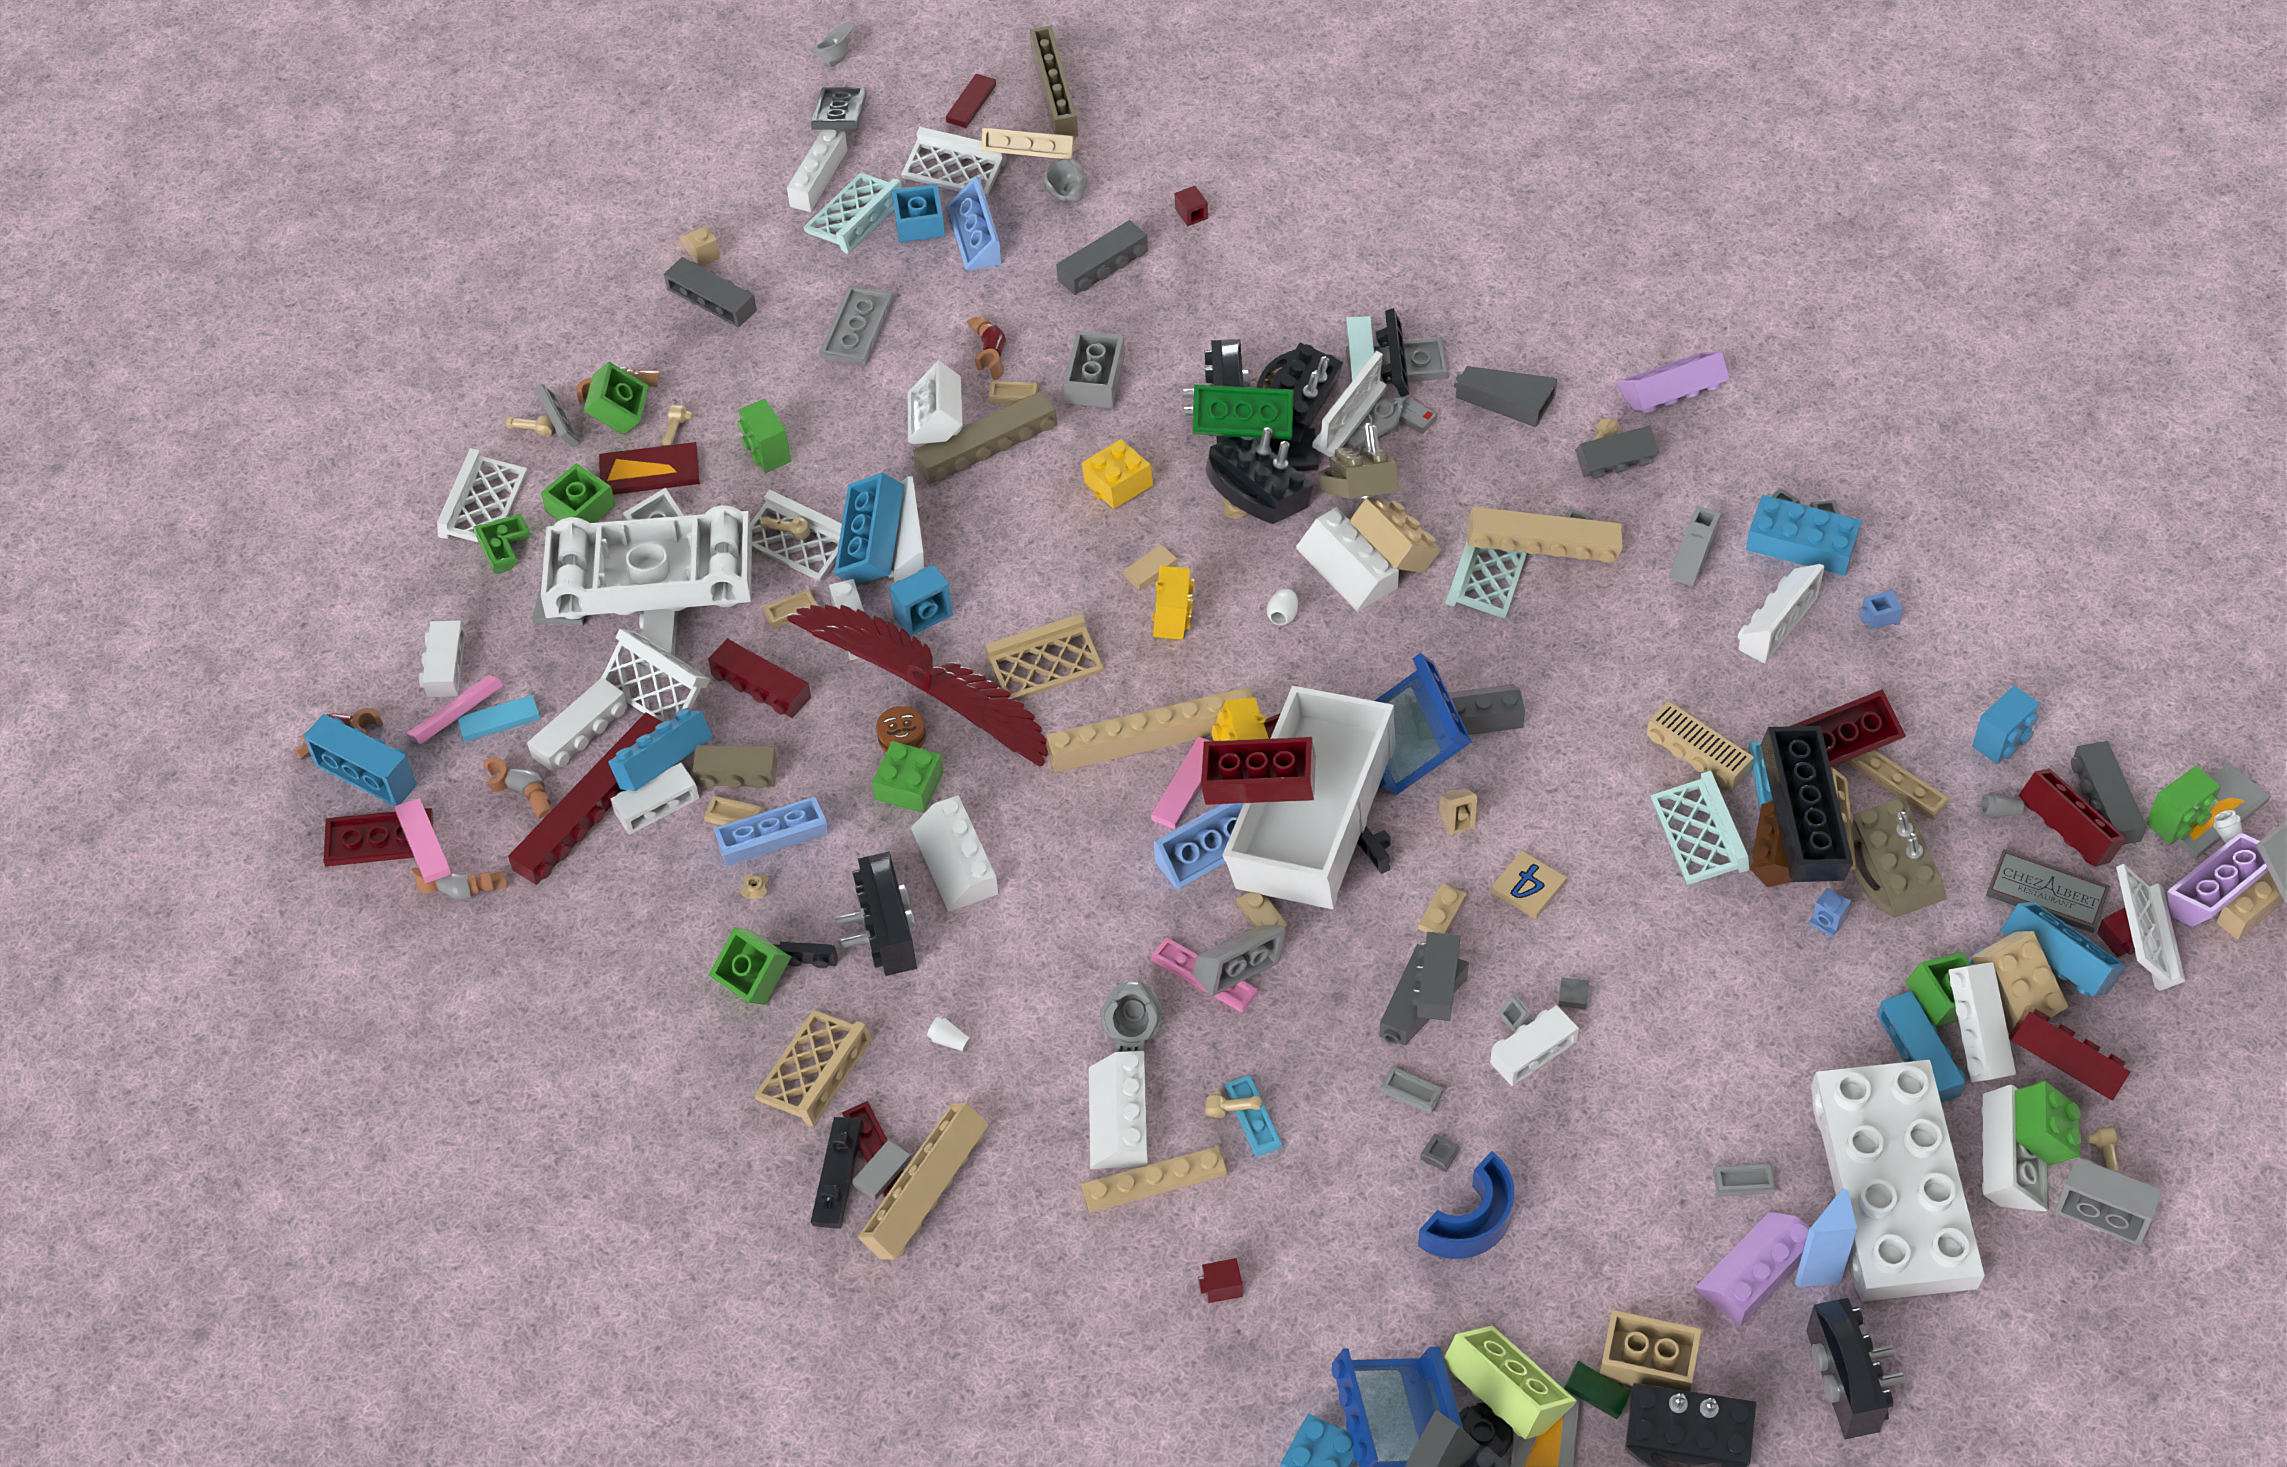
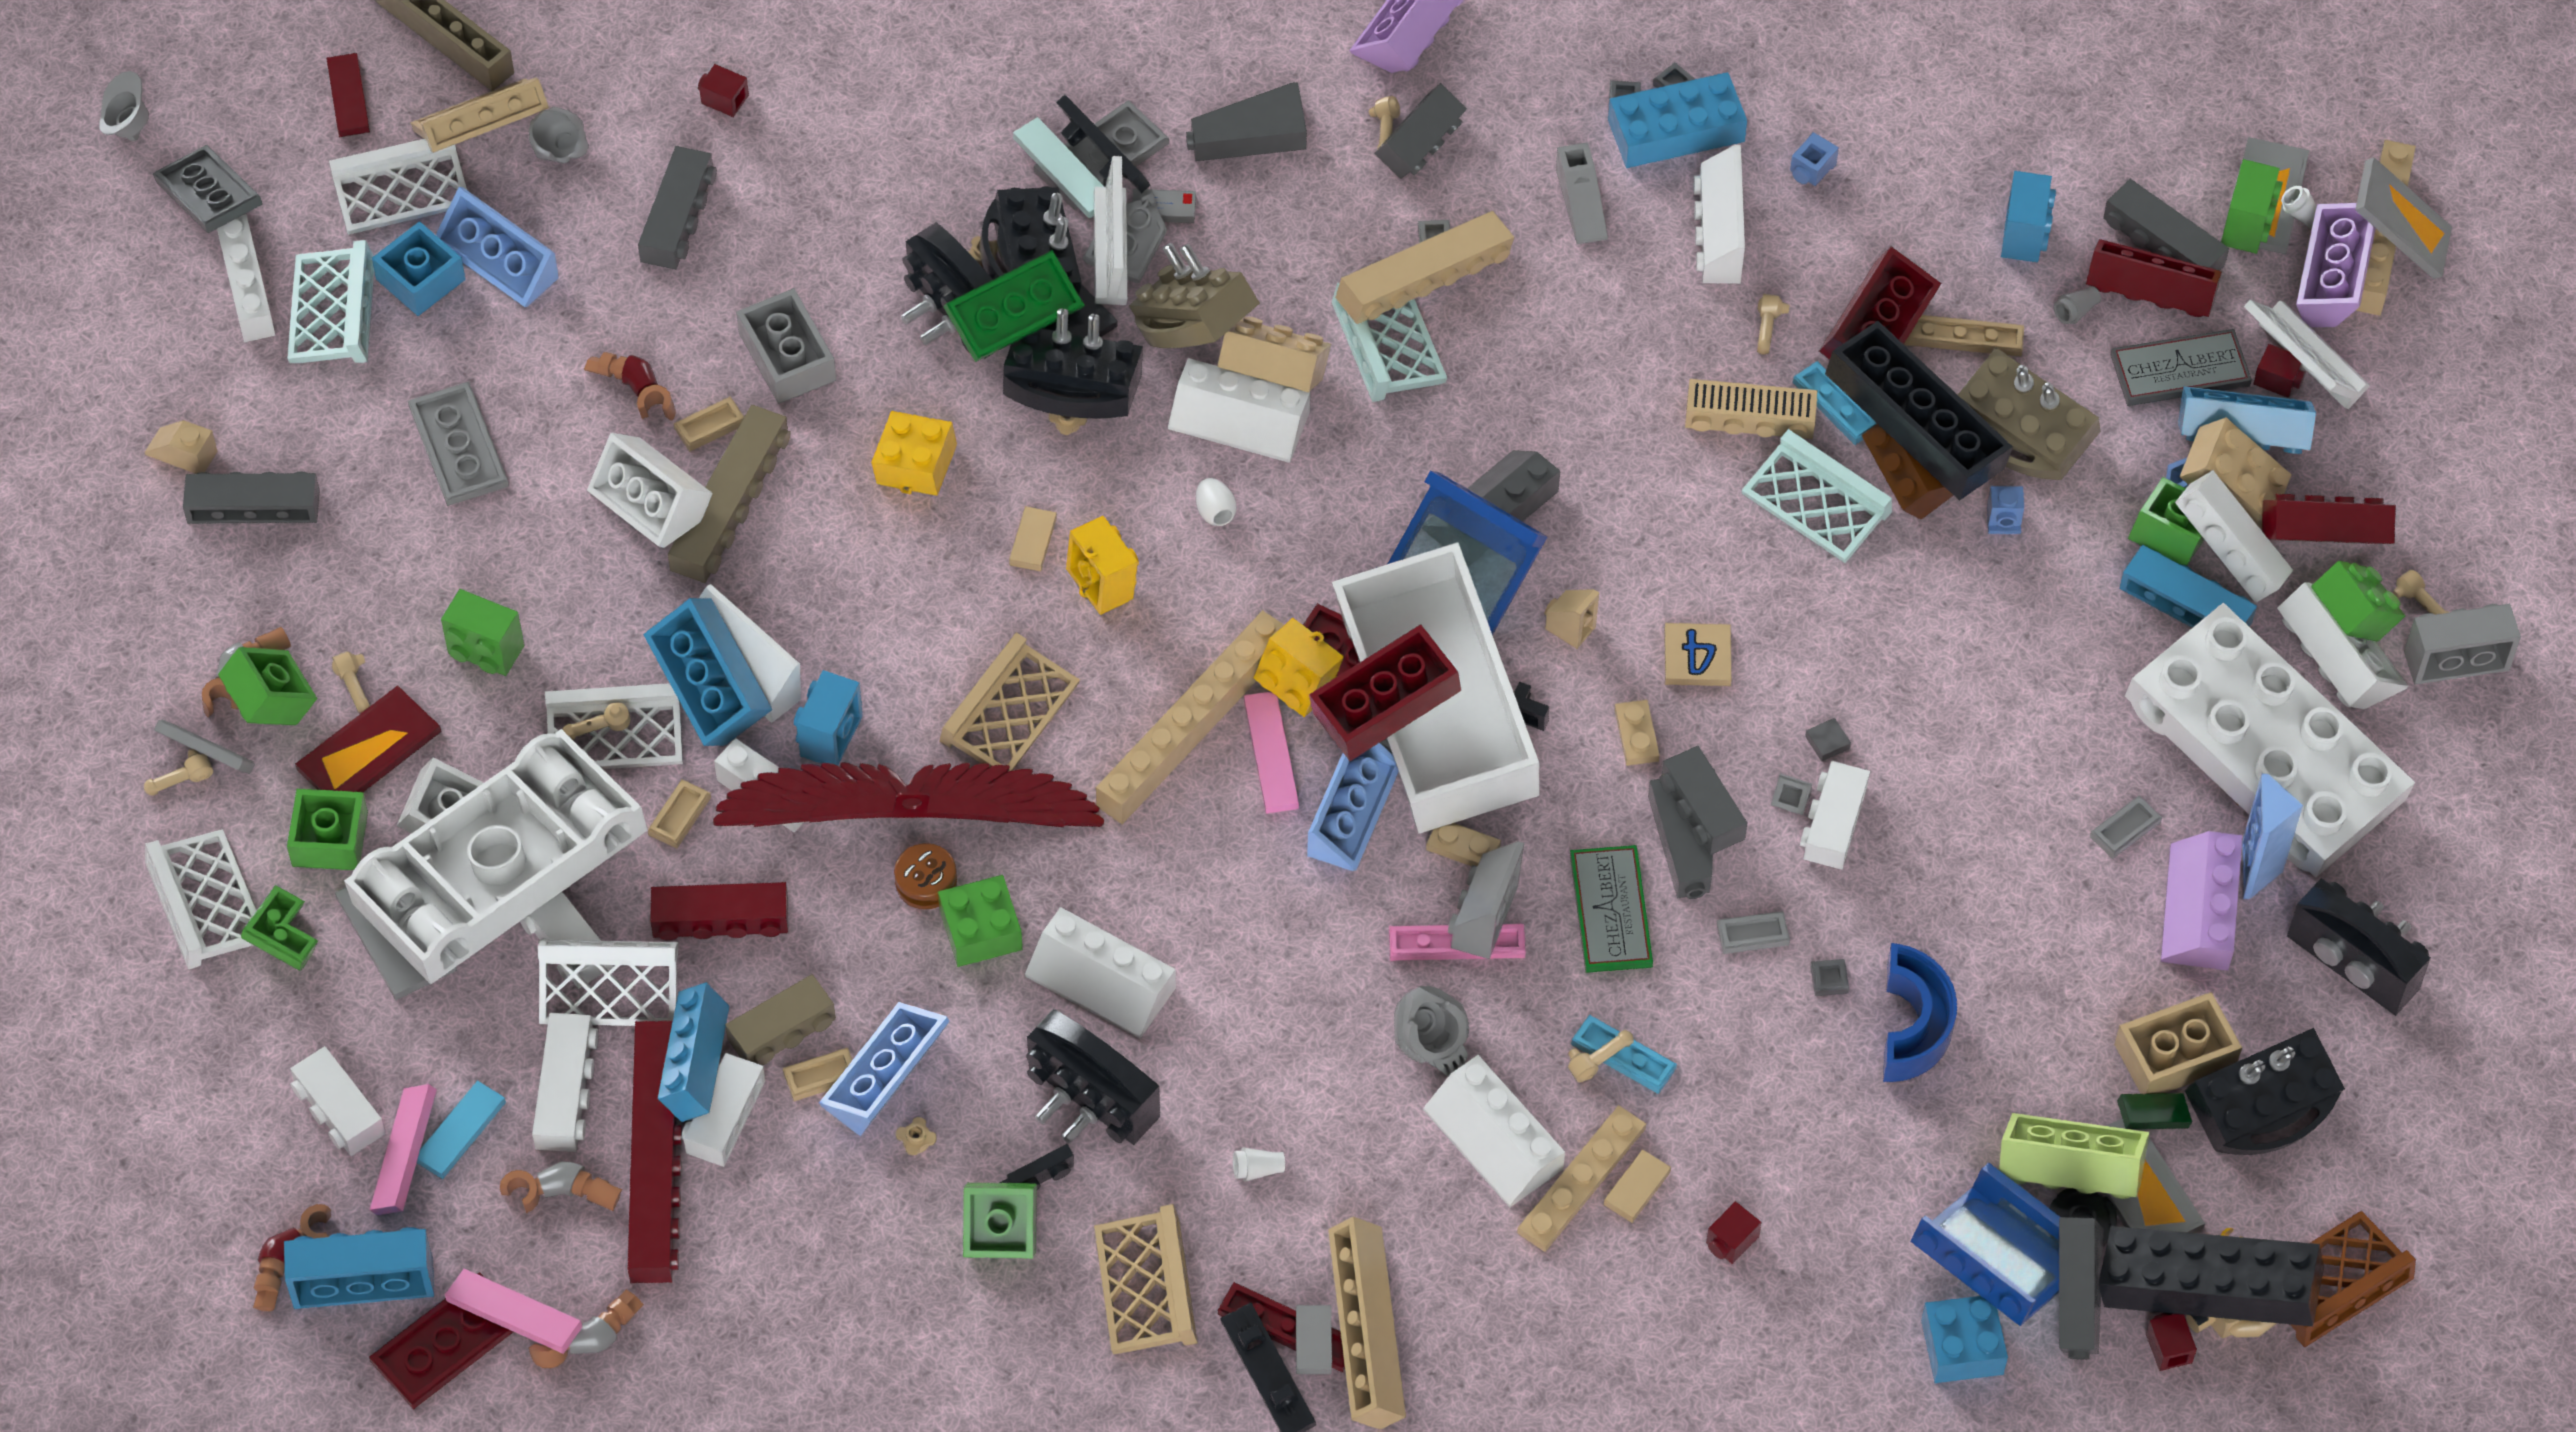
camera: 40 degrees left, 5 degrees up
(1186, 1208) = (1637, 1186): none -> tan tile
(1326, 1015) = (1611, 909): none -> light grey tile
(1769, 689) = (1770, 308): none -> tan piece

